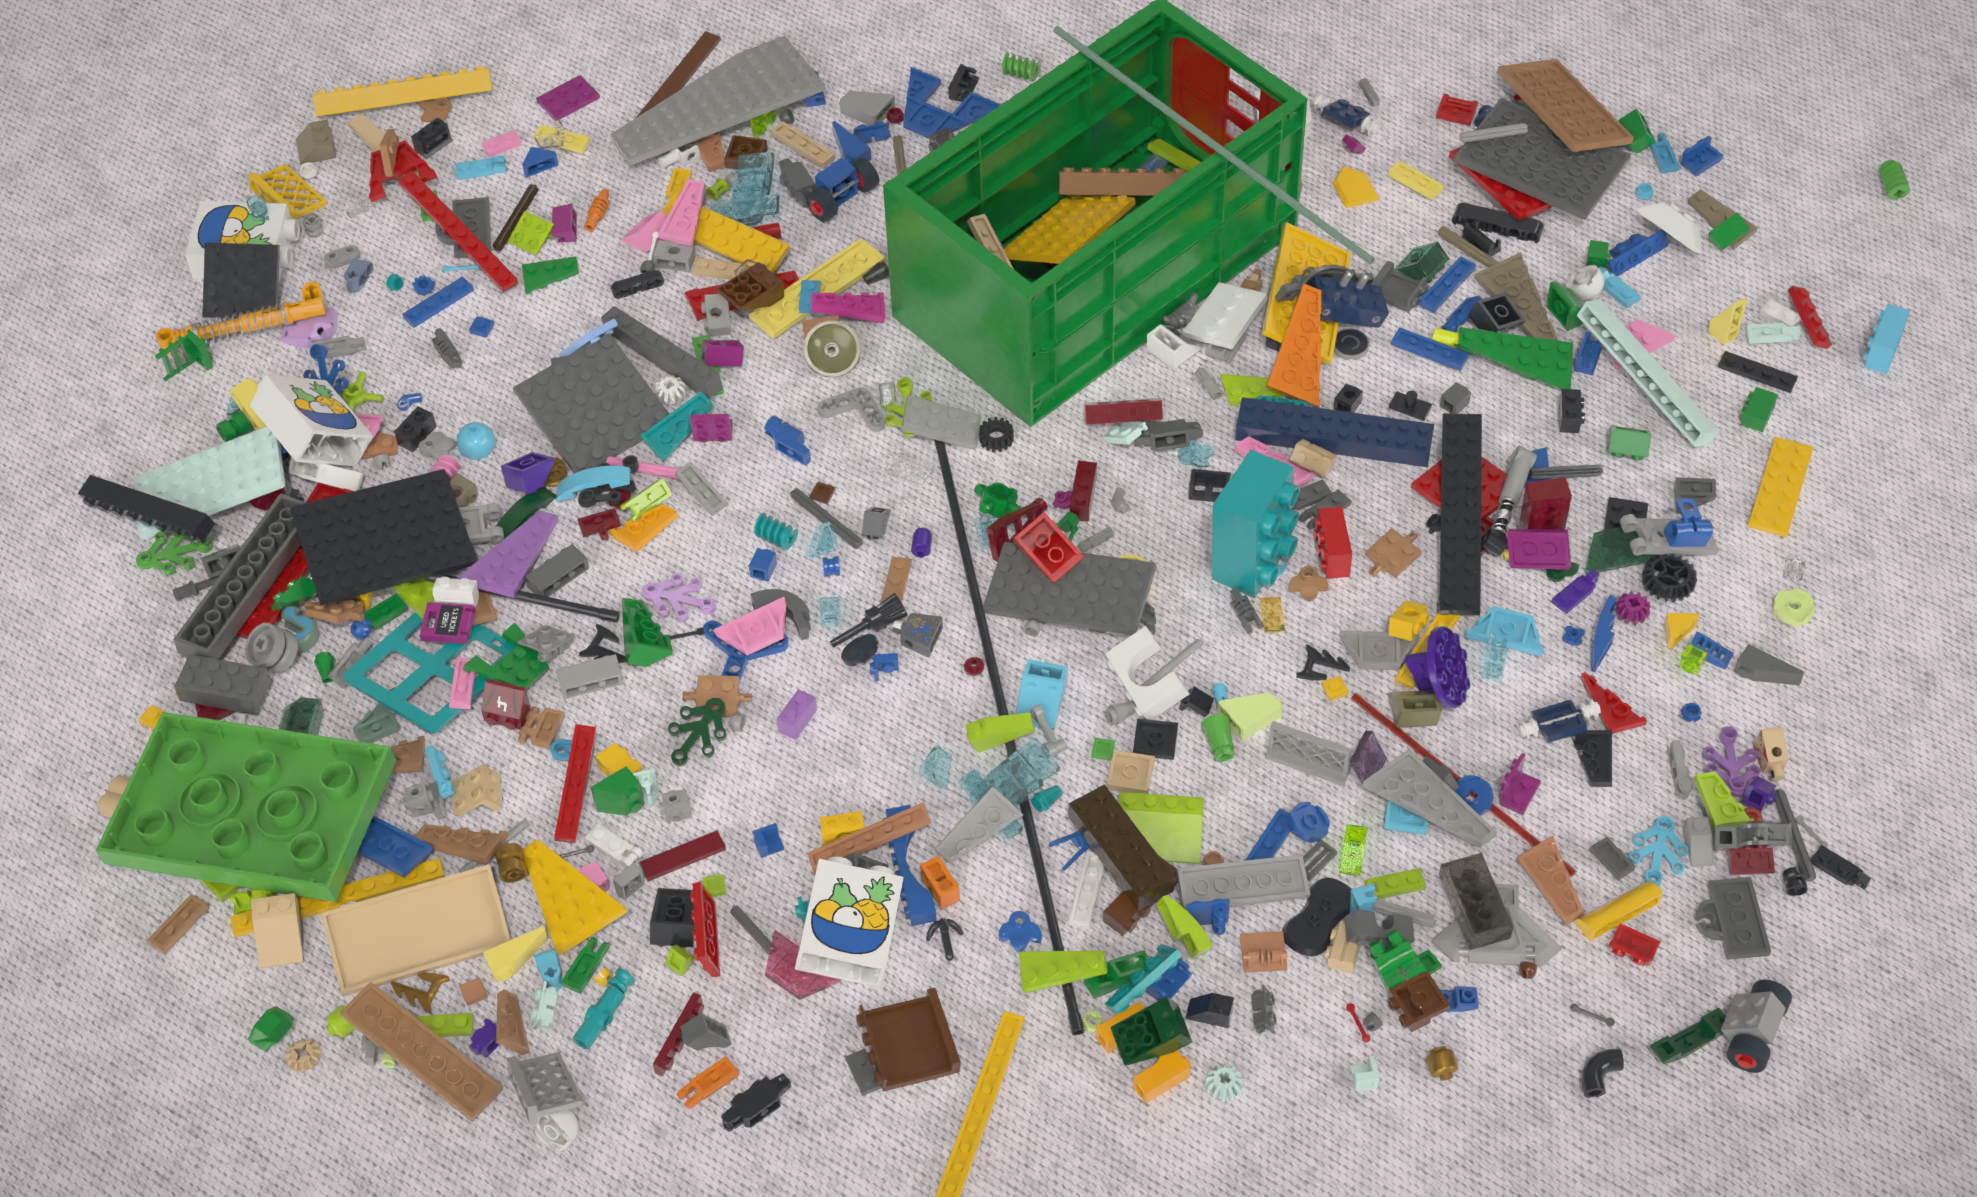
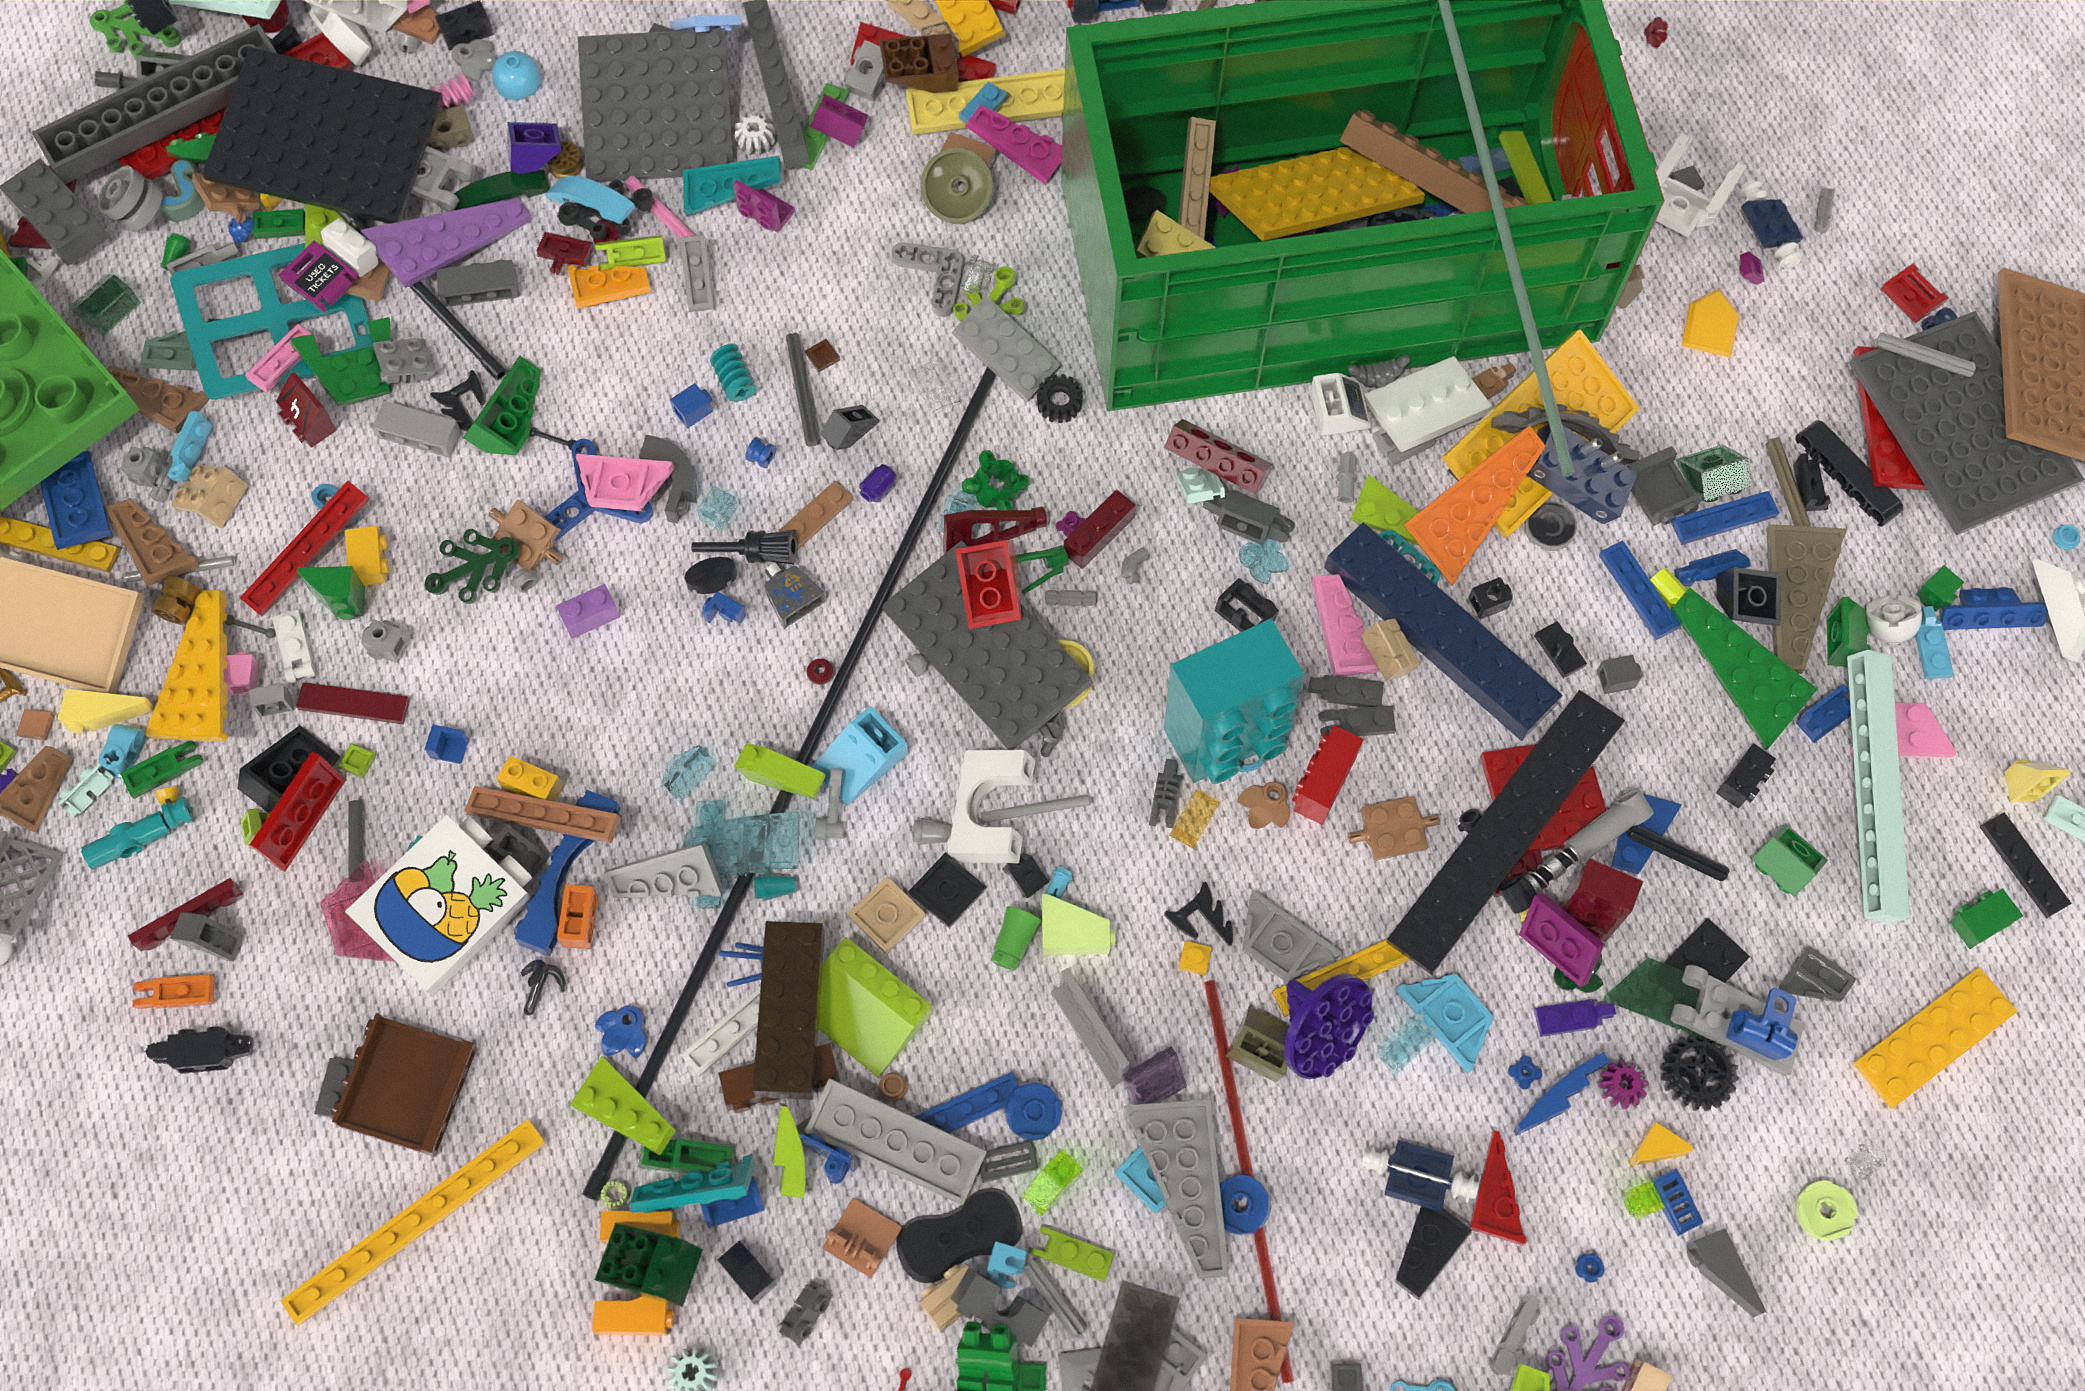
camera: 30 degrees right, 15 degrees up
(546, 729) = (330, 463): medium nougat plate -> none
(648, 785) = (368, 599): light aqua hinge -> none
(677, 596) = (577, 388): lavender plant -> none
(788, 440) = (832, 267): blue plate -> none
(822, 541) = (776, 417): clear light blue slope -> none
(1103, 749) = (881, 864): bright green tile -> none
(1408, 620) = (1338, 930): yellow brick -> none
(1415, 180) = (1791, 358): light yellow plate -> none
(1443, 772) = (1224, 1153): dark grey plate -> none
(1518, 787) = (1306, 1231): magenta bracket -> none

